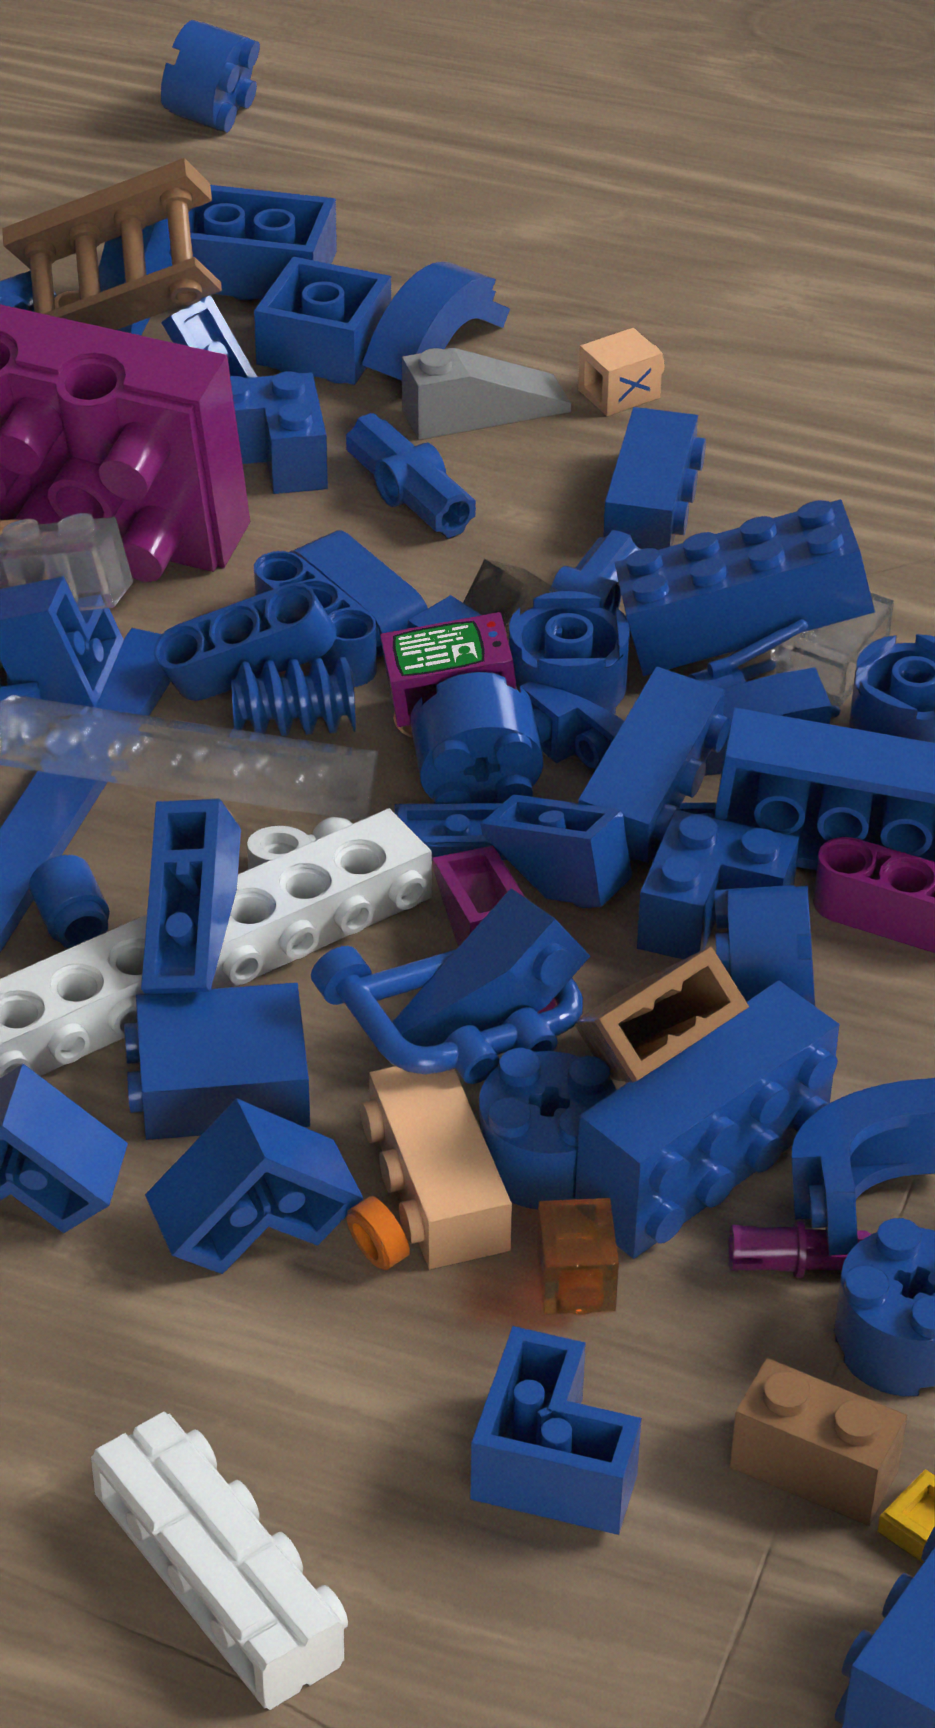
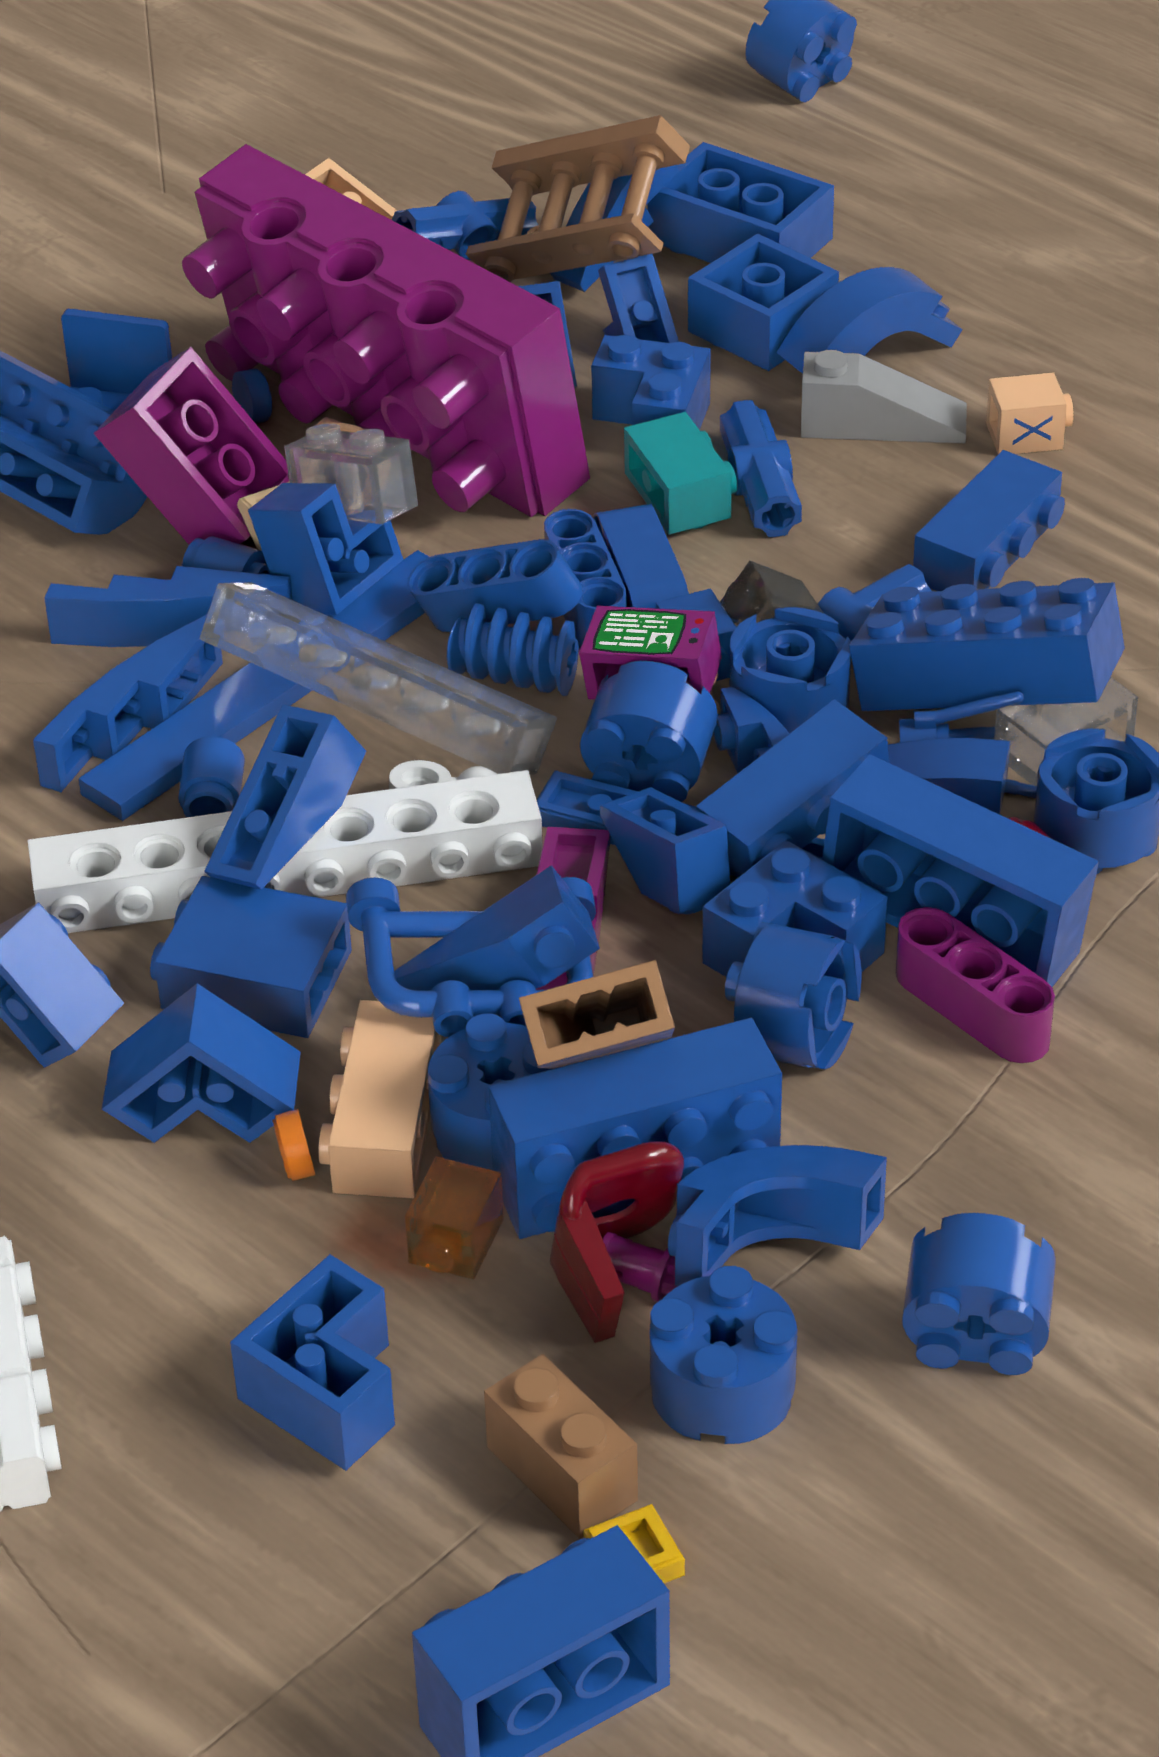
camera: 25 degrees right, 0 degrees up
(342, 491) = (679, 472): none -> teal brick
(731, 1248) = (578, 1252): none -> dark red piece

